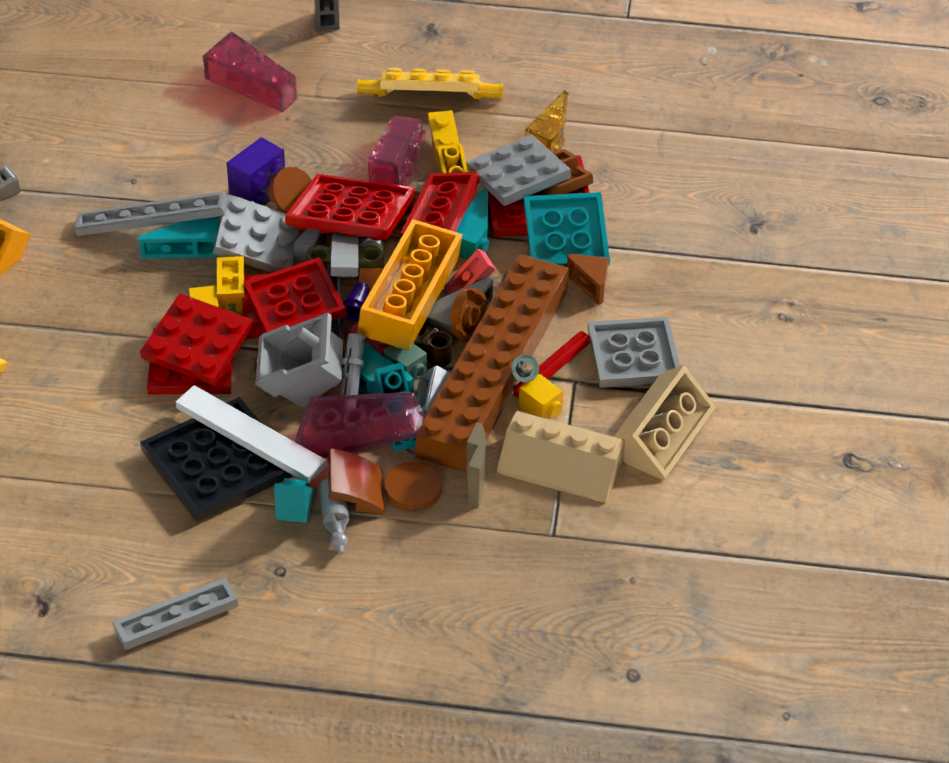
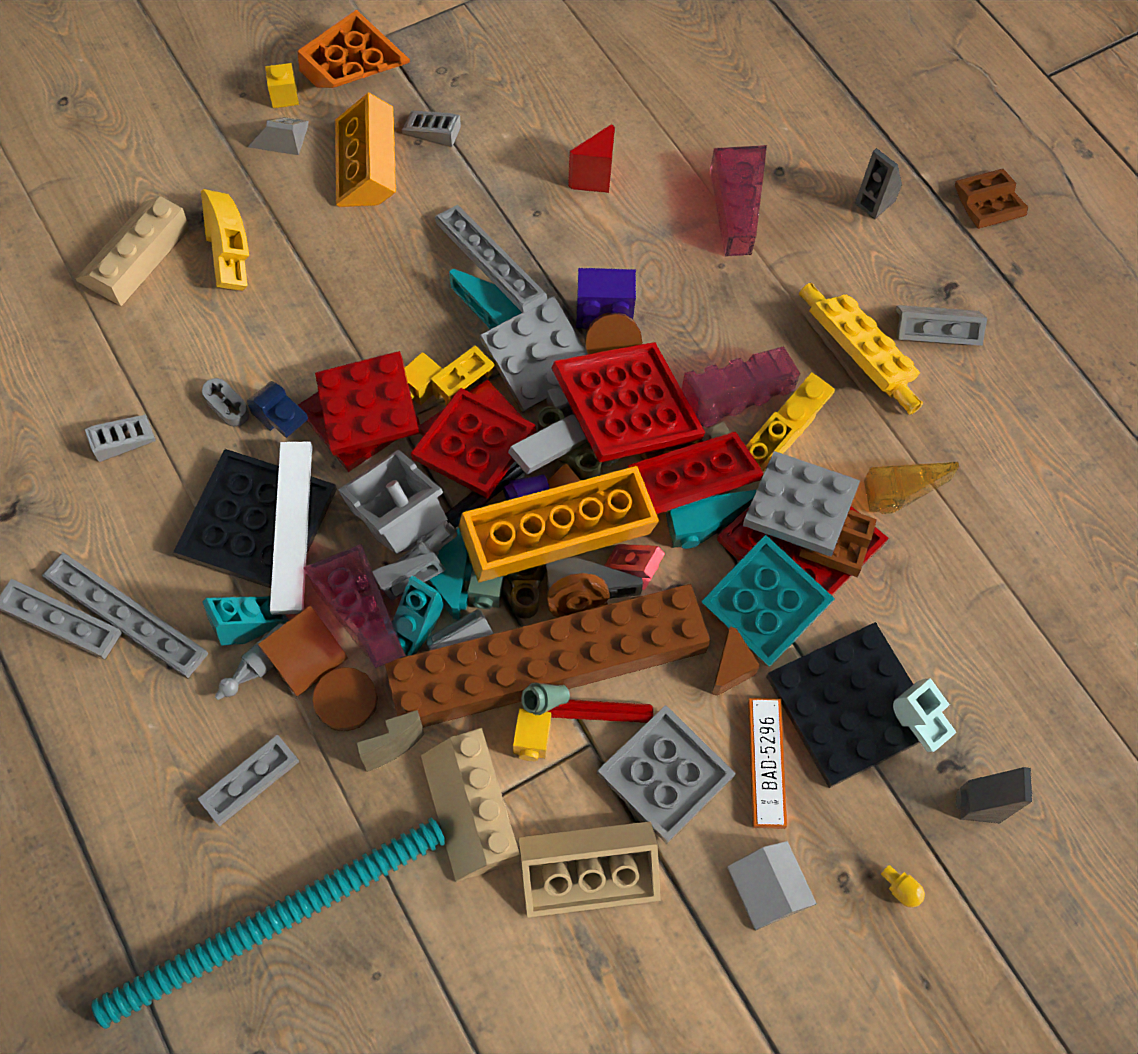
camera: 50 degrees right, 20 degrees up
(54, 518) = (114, 448): none -> light grey slope
(95, 427) = (220, 406): none -> light grey beam
(136, 390) = (276, 409): none -> dark blue brick
(142, 118) = (592, 162): none -> red slope
(236, 569) = (125, 615): none -> light grey tile
(363, 378) = (395, 576): none -> light grey slope
(423, 568) = (248, 780): none -> light grey plate
(456, 44) = (941, 325): none -> light grey panel
(541, 614) = (264, 924): none -> teal piece
(673, 242) = (844, 703): none -> black plate
(673, 303) = (767, 763): none -> white tile
(714, 199) = (922, 711): none -> light aqua brick
(755, 349) = (771, 884): none -> light grey slope
(800, 201) = (995, 796): none -> dark grey slope
(814, 288) = (904, 887): none -> yellow cylinder

